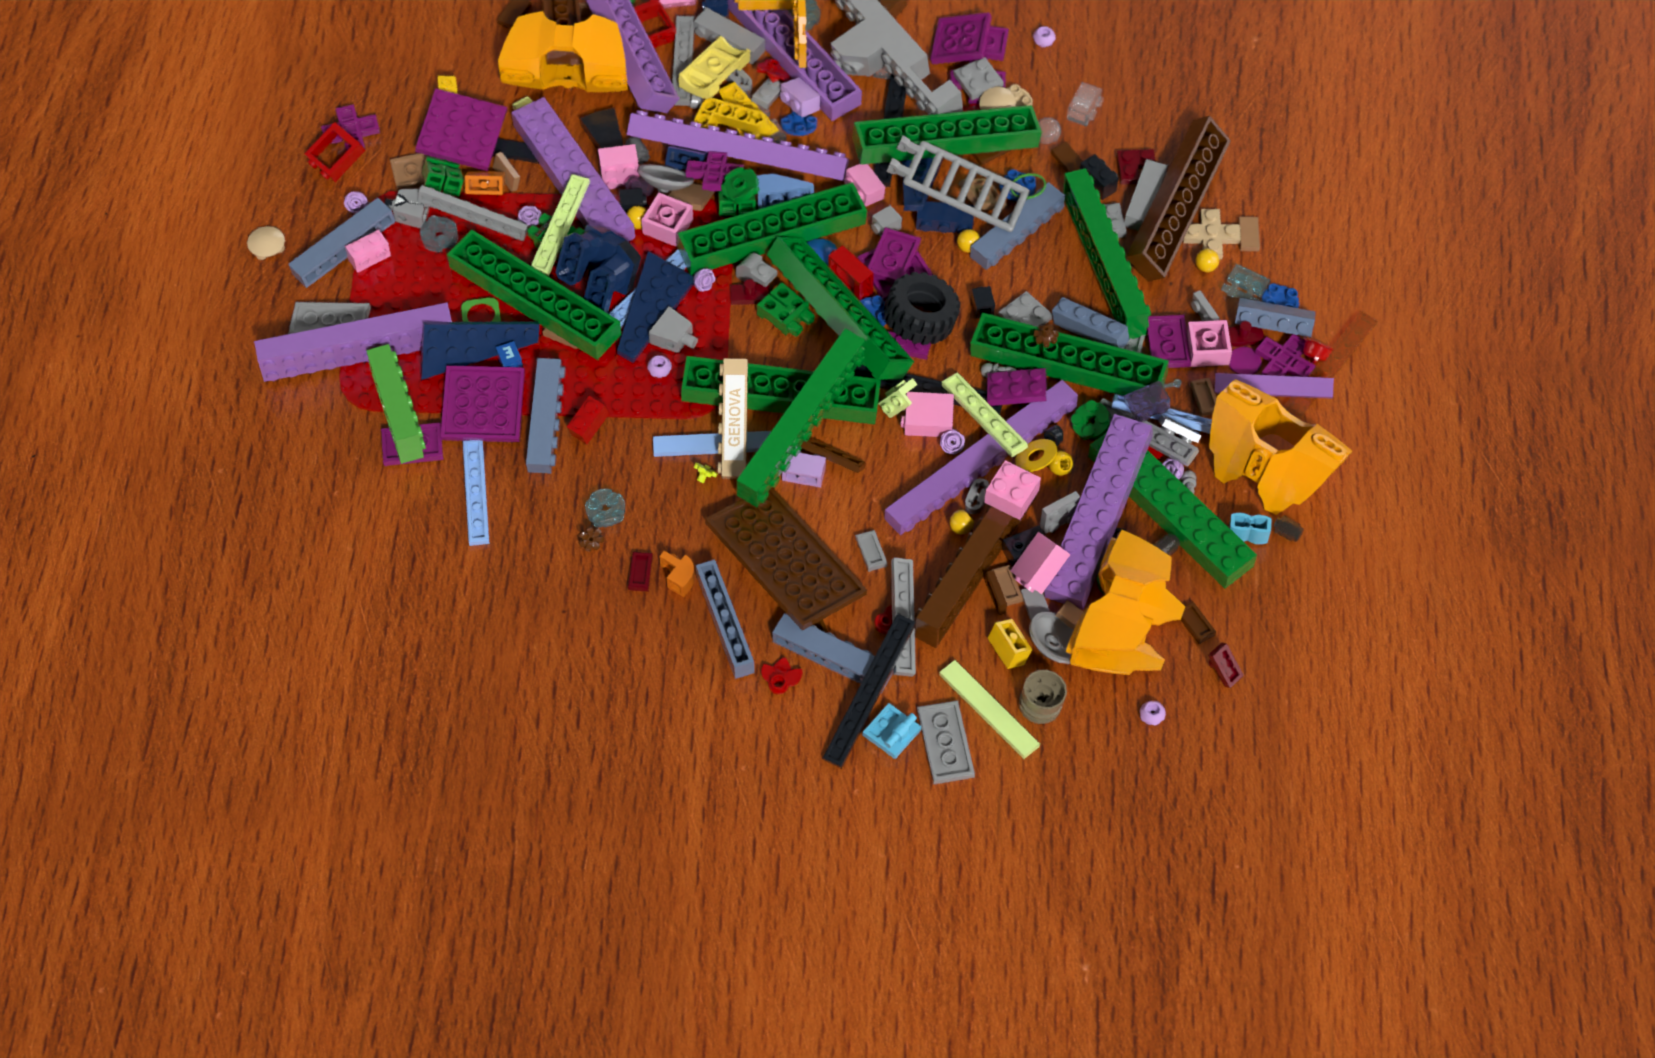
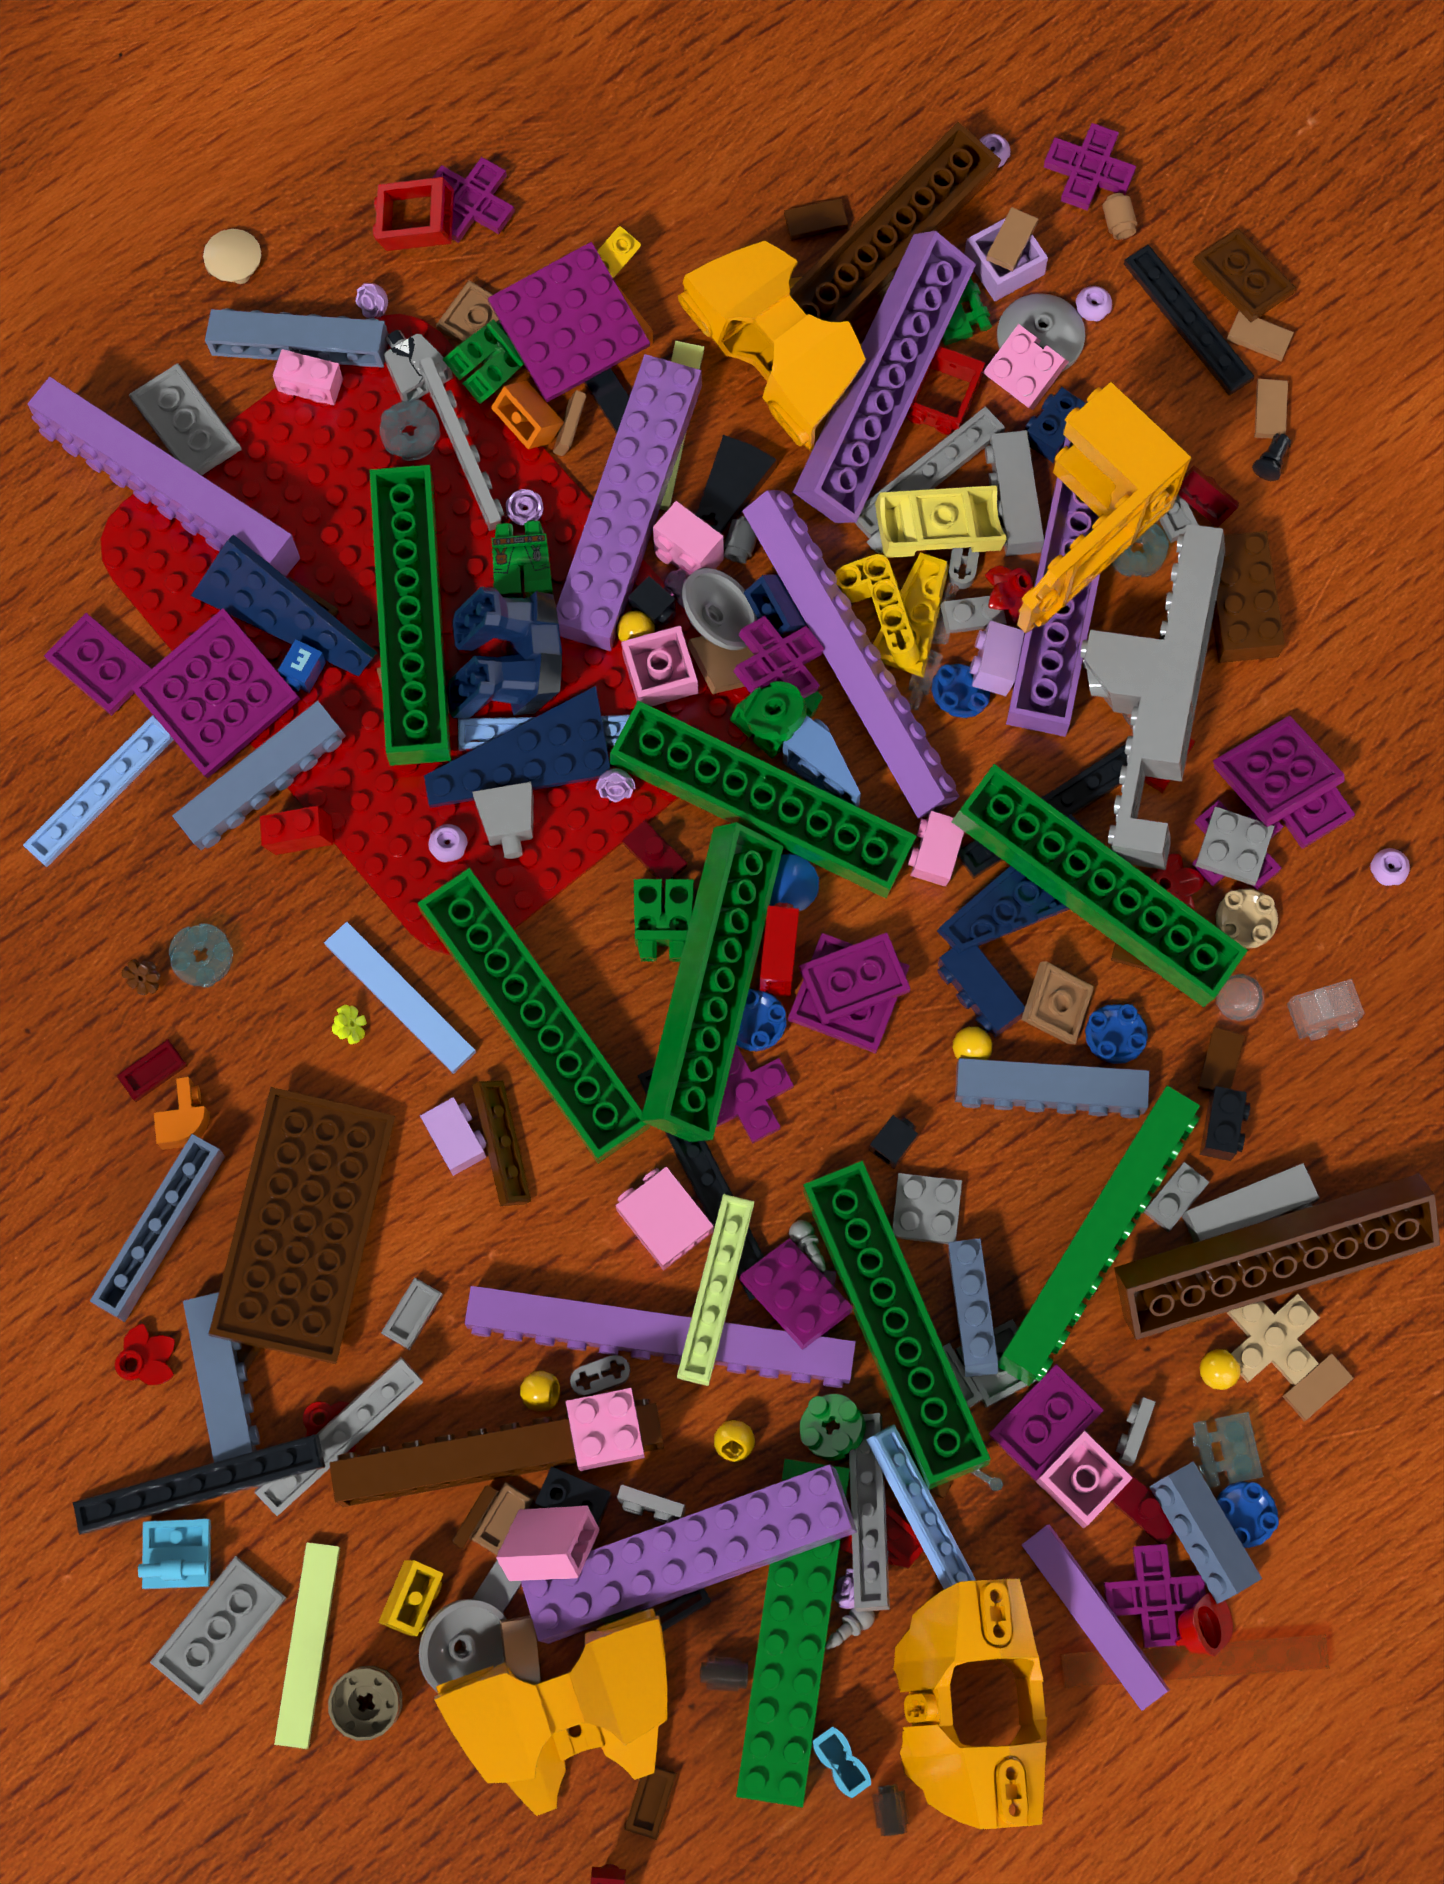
camera: 50 degrees right, 15 degrees up
(396, 403) = (115, 601): bright green brick -> none
(489, 301) = (341, 551): bright green piece -> none
(560, 224) = (529, 555): yellowish green tile -> none
(734, 418) = (431, 1000): brick -> none
(754, 268) = (685, 835): light grey brick -> none
(801, 418) = (490, 1082): green brick -> none
(886, 218) = (903, 923): light grey brick -> none
(896, 398) = (647, 1158): yellowish green bracket -> none
(916, 324) = (838, 1063): black tyre -> none
(918, 150) = (1068, 967): light grey bar -> none
(949, 436) = (640, 1285): lavender plate -> none
(997, 98) = (1220, 900): tan dish -> none
(1030, 174) = (1125, 1026): bright green piece -> none
(1046, 335) = (889, 1276): reddish brown plant -> none
(1050, 451) = (704, 1418): yellow gear -> none
(1055, 434) = (768, 1398): black tile -> none
(1130, 162) = (1295, 1141): dark red plate -> none
(1148, 401) = (903, 1483): clear purple bracket -> none
(1152, 718) = (471, 1841): lavender plate -> none
(1171, 426) = (902, 1556): plate -> none
(1204, 396) = (1005, 1537): medium nougat tile -> none
(1244, 361) = (1109, 1542): magenta piece -> none

